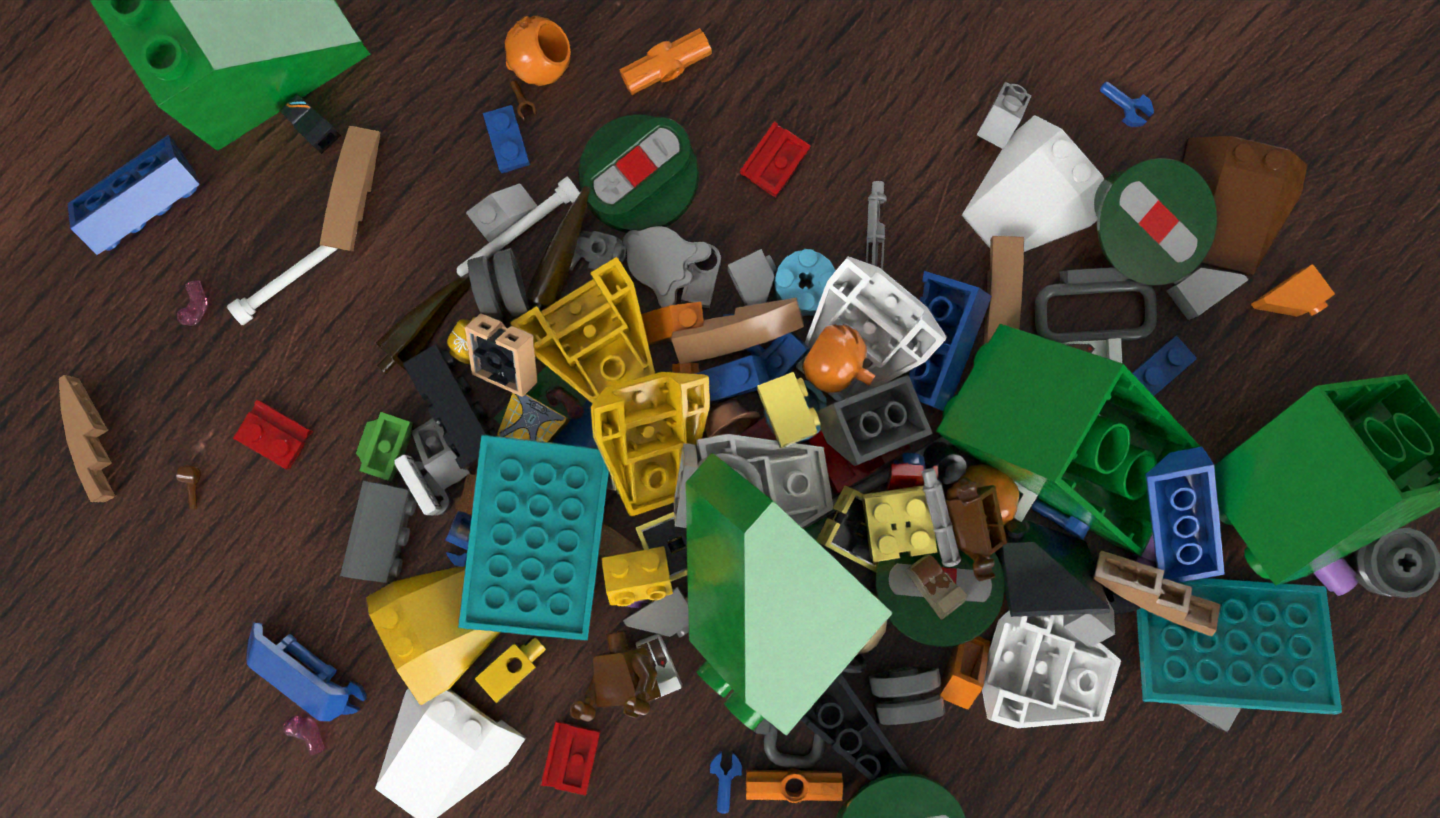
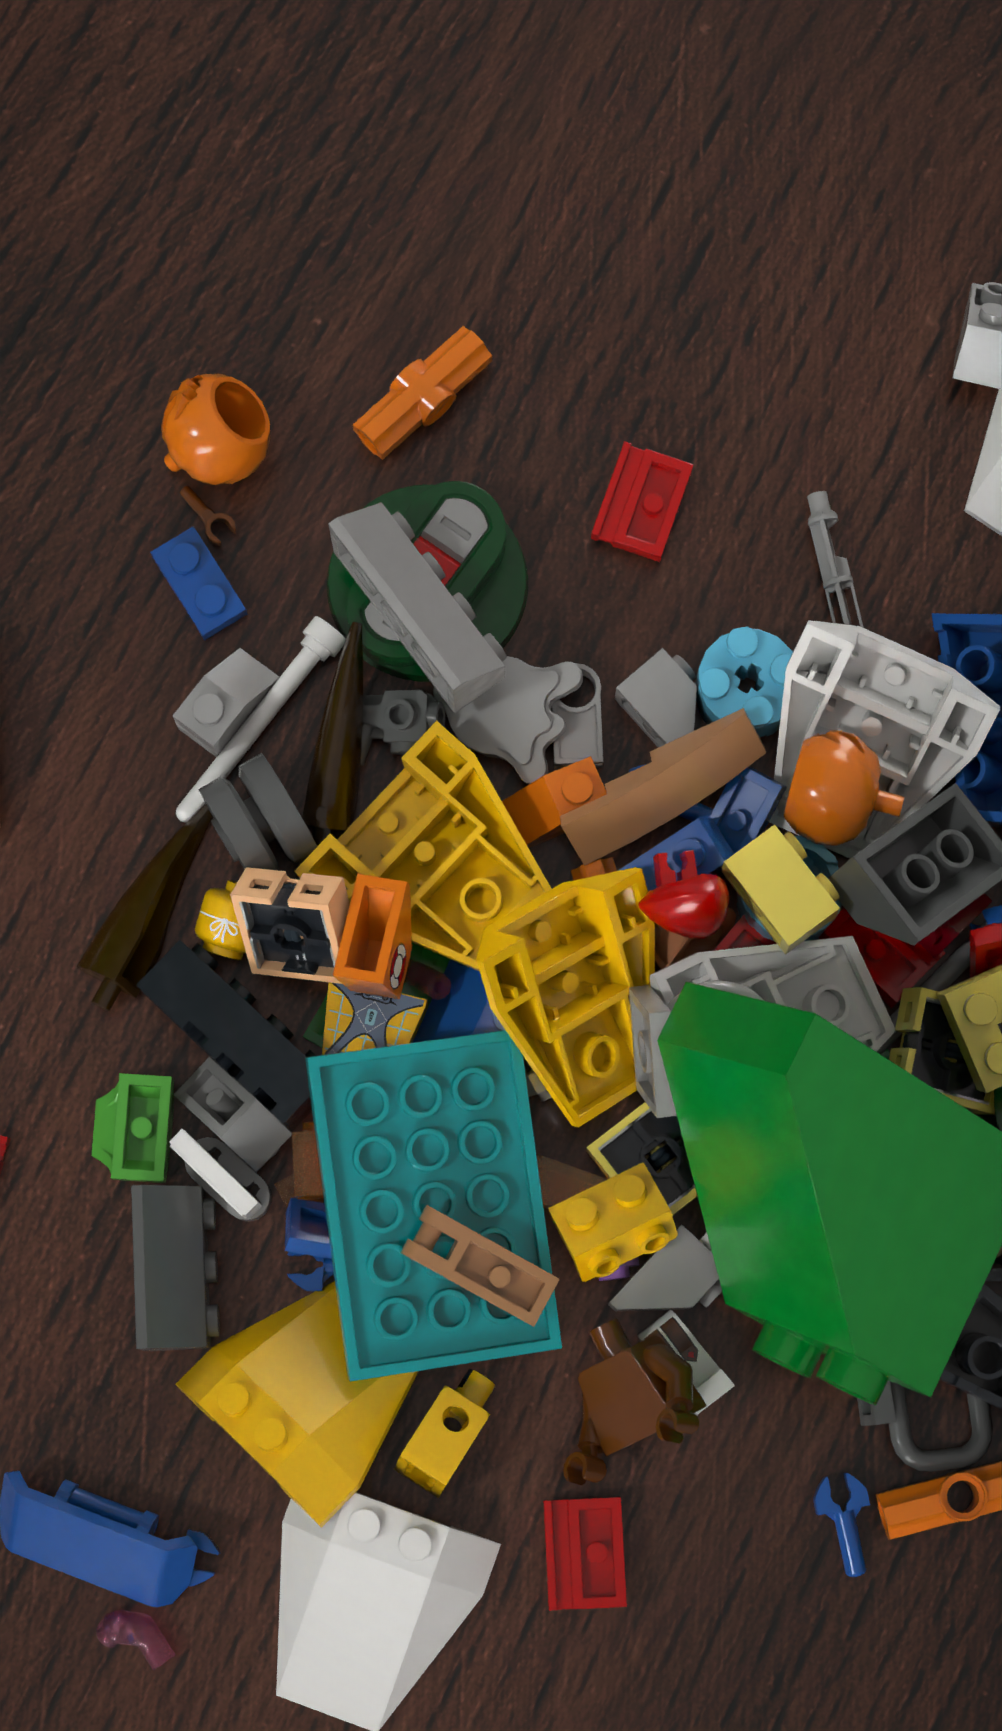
camera: 15 degrees left, 5 degrees down
(543, 374) = (376, 937): none -> orange slope
(550, 583) = (482, 1267): none -> medium nougat plate
(623, 184) = (417, 604): none -> light grey slope
(729, 406) = (692, 904): none -> red piece

